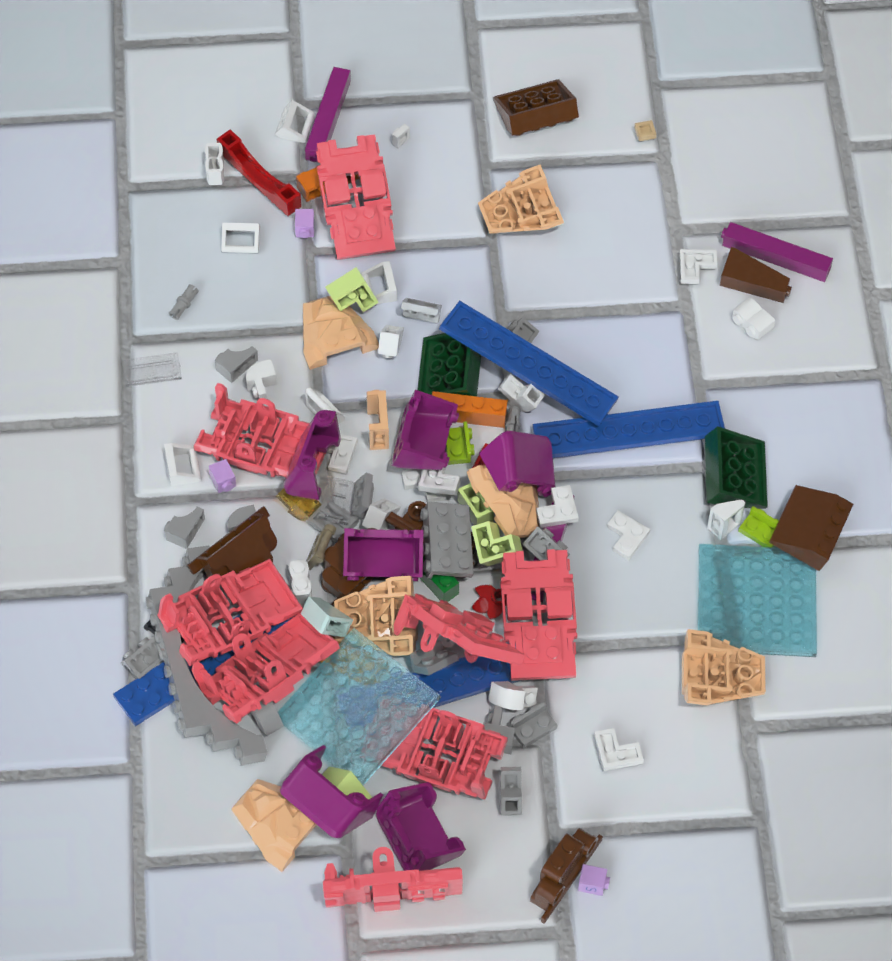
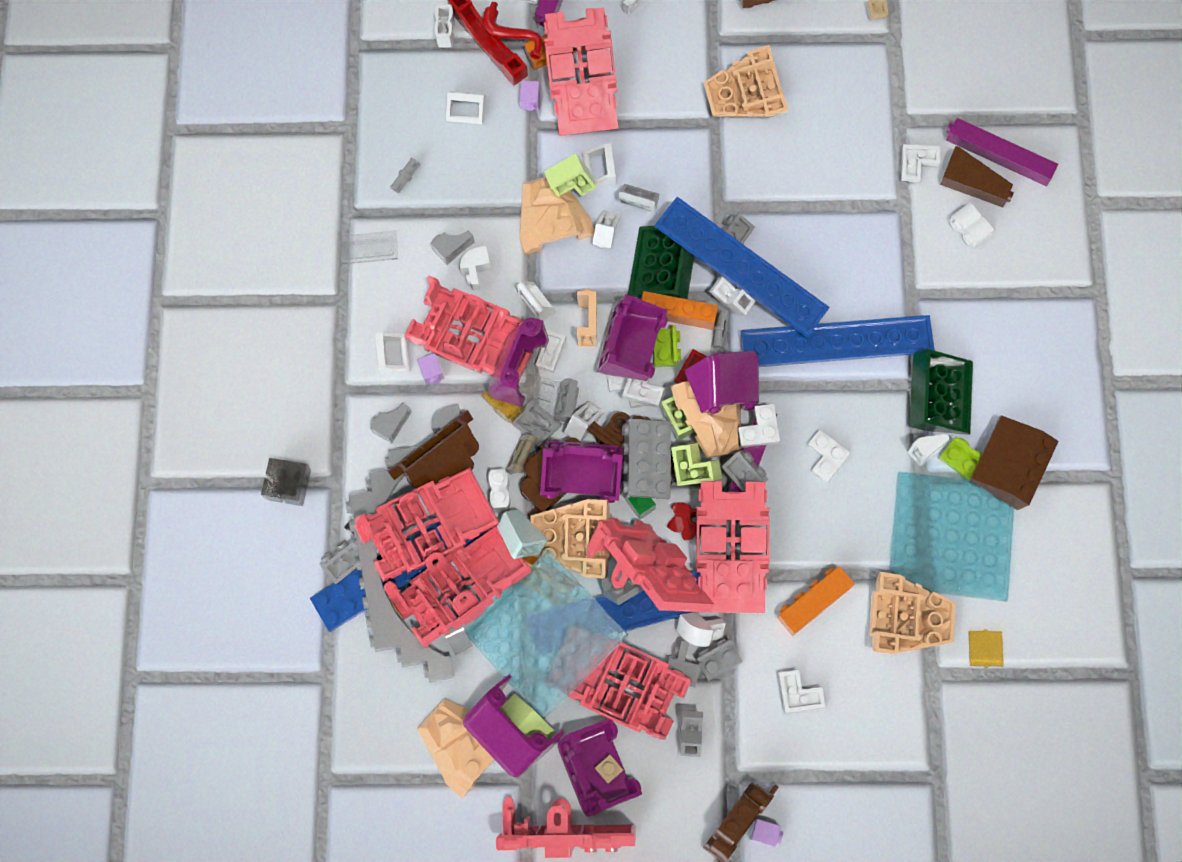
camera: 10 degrees right, 15 degrees up
(84, 585) = (289, 481): none -> clear smoke piece
(261, 160) = (490, 25): none -> red animal
(430, 832) = (609, 769): none -> tan plate
(626, 664) = (816, 600): none -> orange brick
(799, 700) = (986, 648): none -> clear yellow piece

